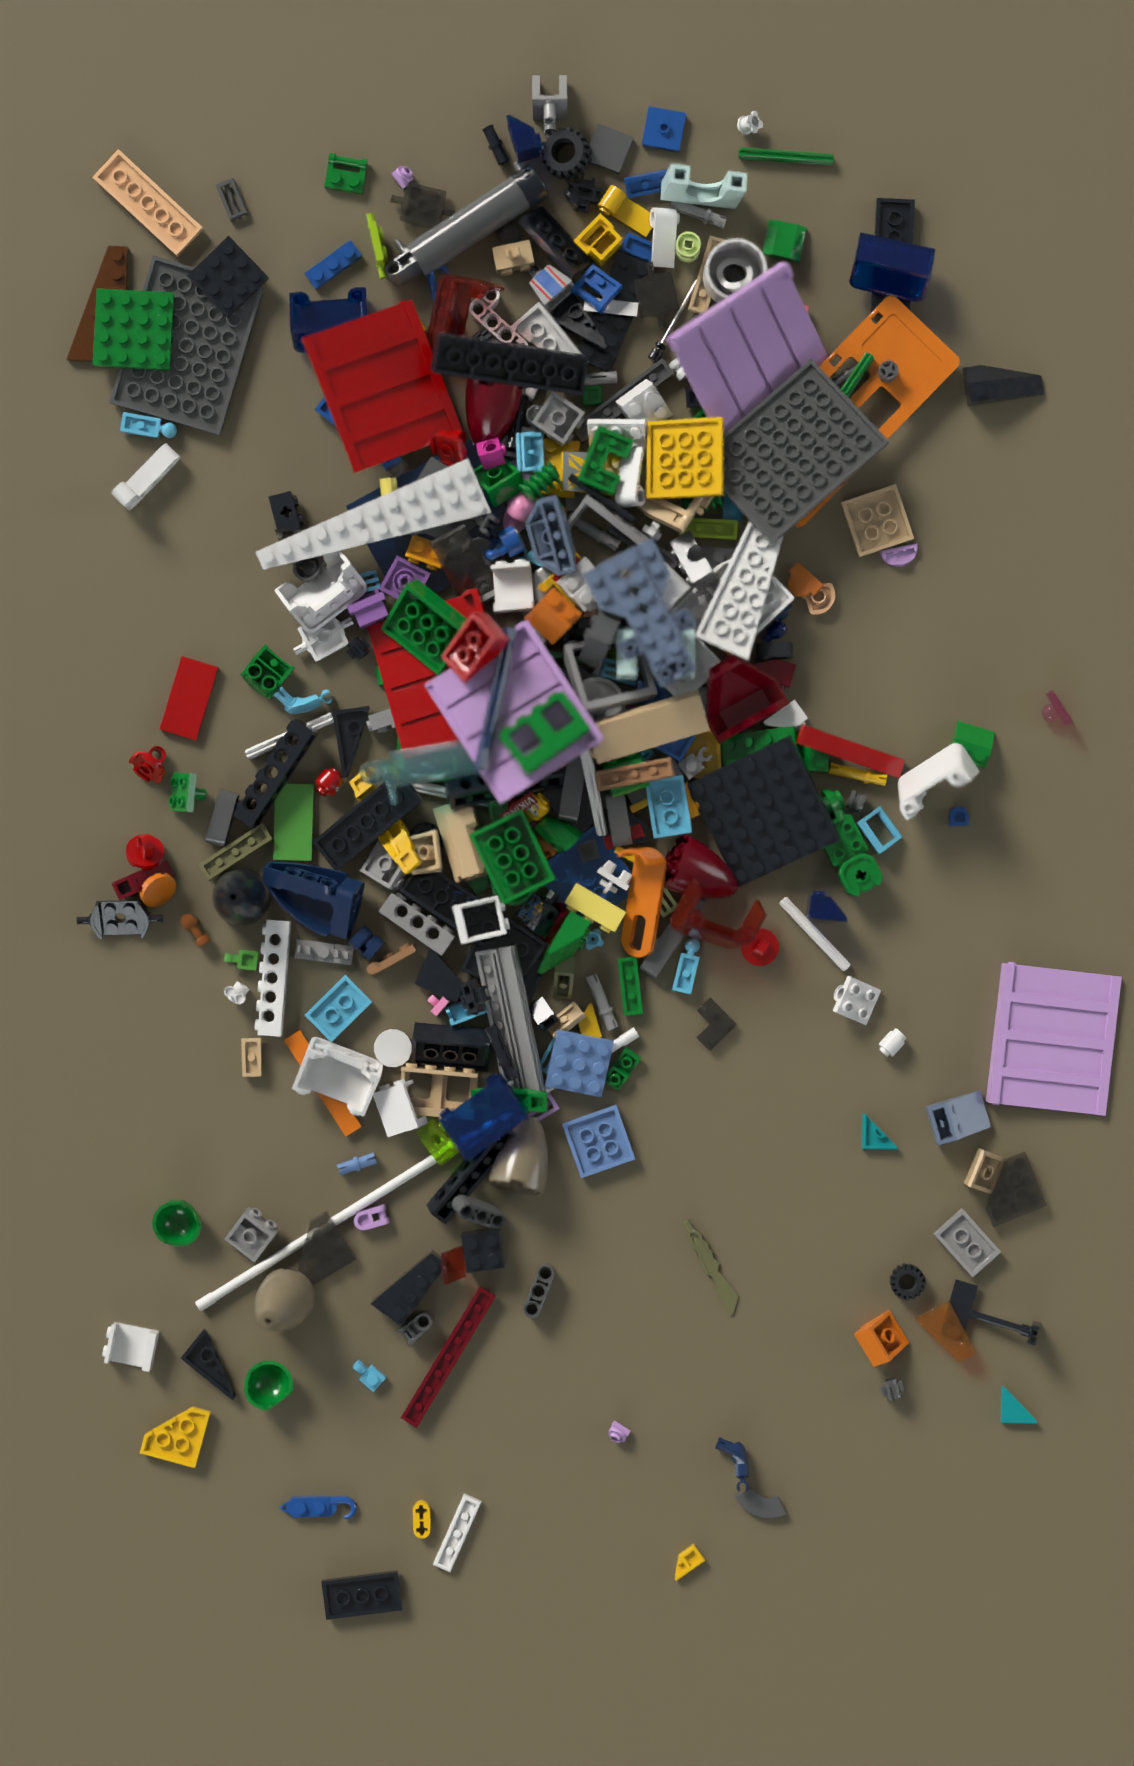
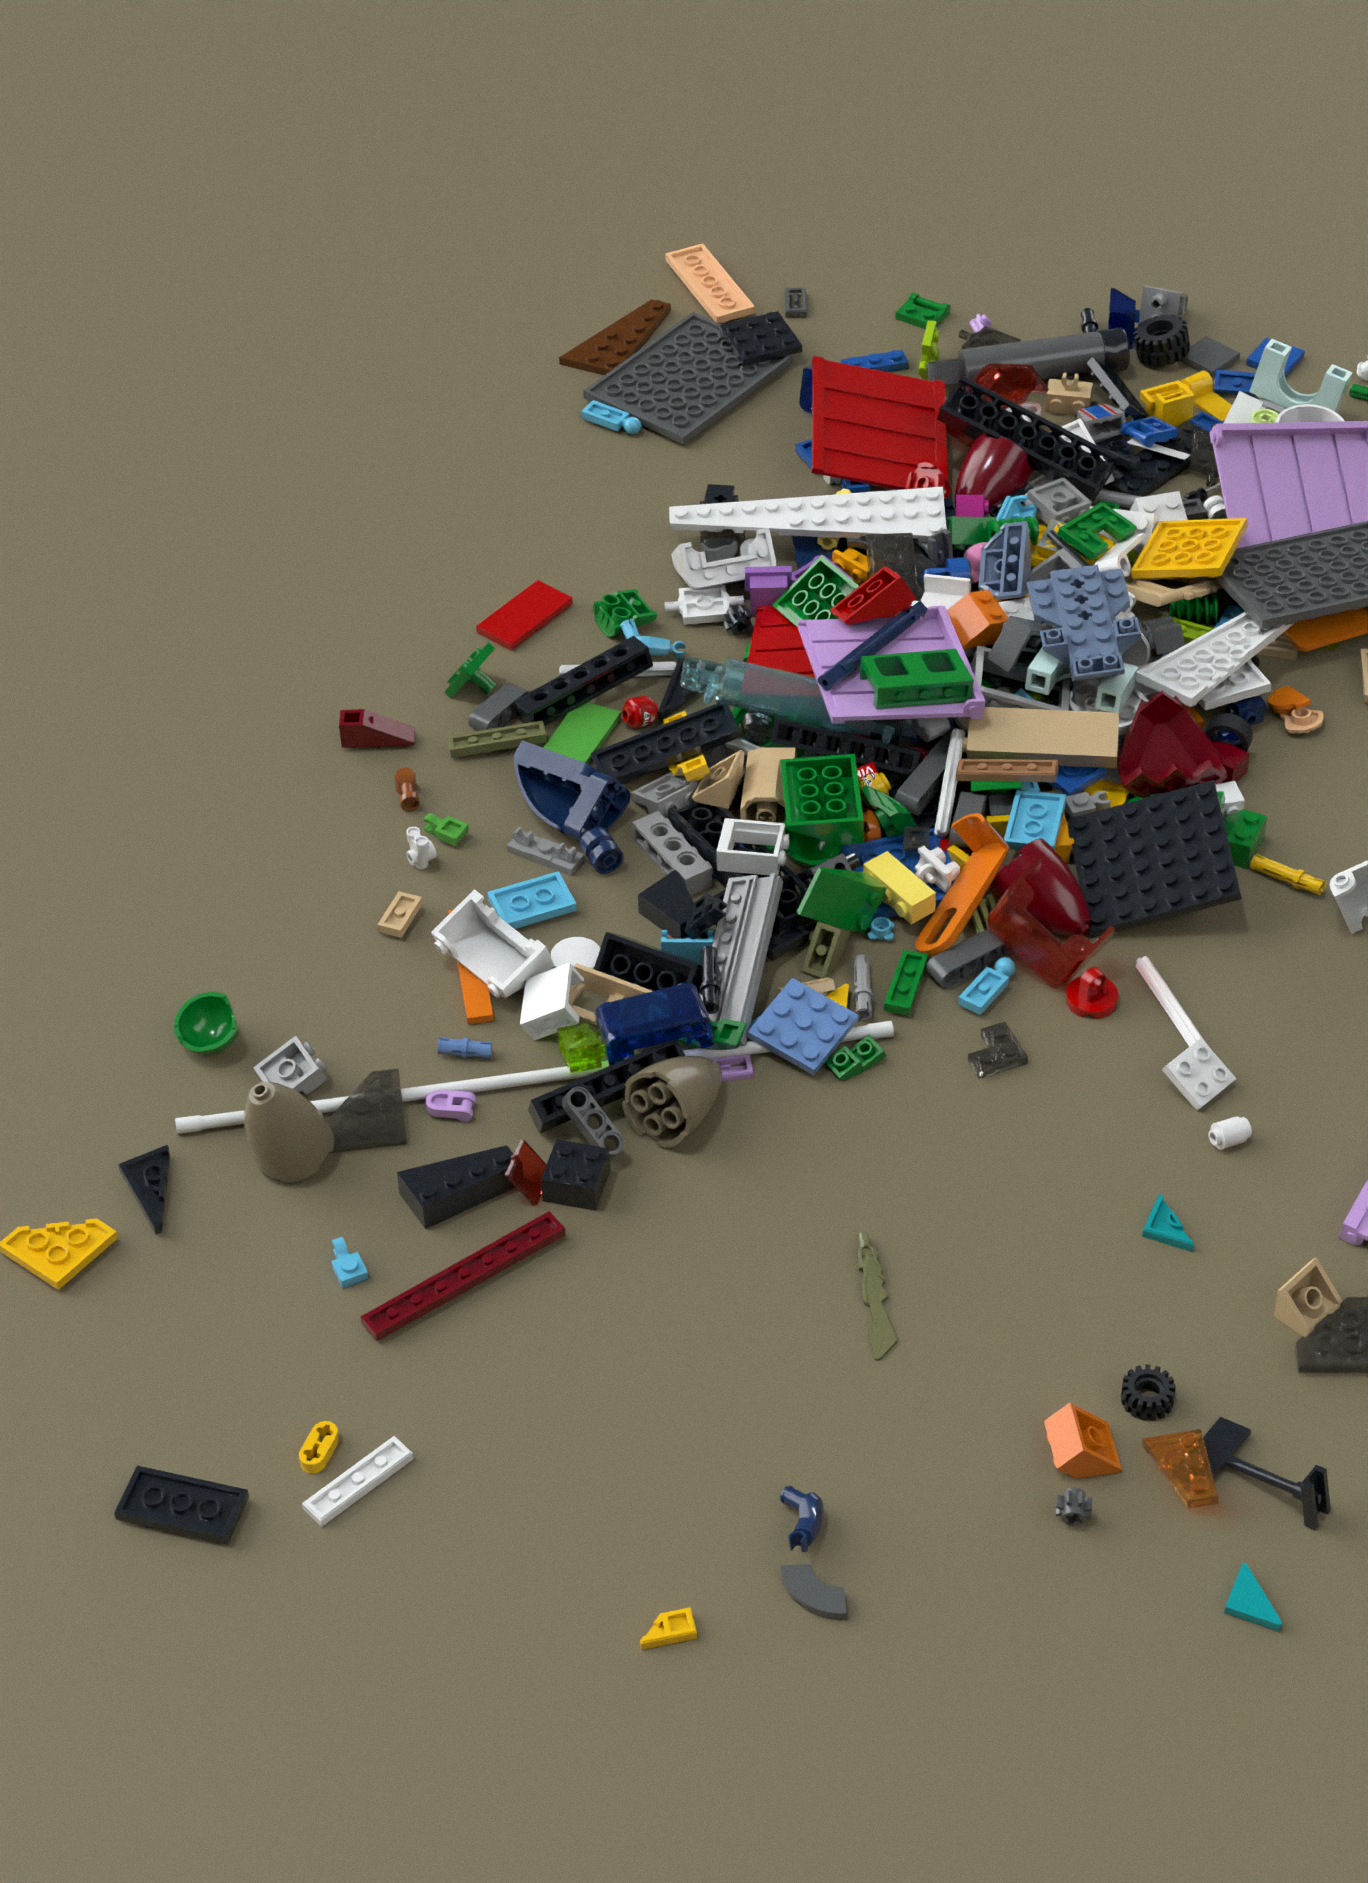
camera: 25 degrees right, 45 degrees down
(105, 922) = (314, 742): plate -> none
(131, 1345) = (64, 1139): white panel -> none
(133, 329) = (641, 348): green plate -> none
(144, 852) = (394, 706): red tile -> none
(147, 766) = (445, 642): red tile -> none
(155, 468) = (583, 450): white beam -> none
(157, 890) = (388, 738): orange tile -> none
(251, 895) = (477, 763): black cylinder -> none
(267, 1384) = (211, 1219): green cylinder -> none
(274, 1027) = (471, 853): white brick -> none
(317, 1506) = (186, 1386): blue plate -> none
(390, 959) = (622, 876): medium nougat hinge -> none
(413, 1329) = (443, 1229): dark grey piece -> none
(438, 1004) = (653, 929): bright pink tile -> none
(533, 1298) = (625, 1241): dark grey beam -> none
(543, 1013) = (781, 969): brick -> none
(583, 197) = (1162, 373): black piece -> none
(598, 1141) = (787, 1116): medium blue plate -> none
(618, 1432) = (648, 1436): lavender plate -> none
(823, 907) = (1192, 969): clear blue slope -> none
(849, 852) = (1247, 933): green brick -> none
(850, 751) = (1281, 833): red tile -> none
(856, 801) = (1275, 894): dark grey wheel -> none
(870, 836) = (1289, 944): medium azure tile -> none
(957, 1117) = (1289, 1230): sand blue slope -> none
(967, 1242) = (1253, 1375): light grey plate -> none

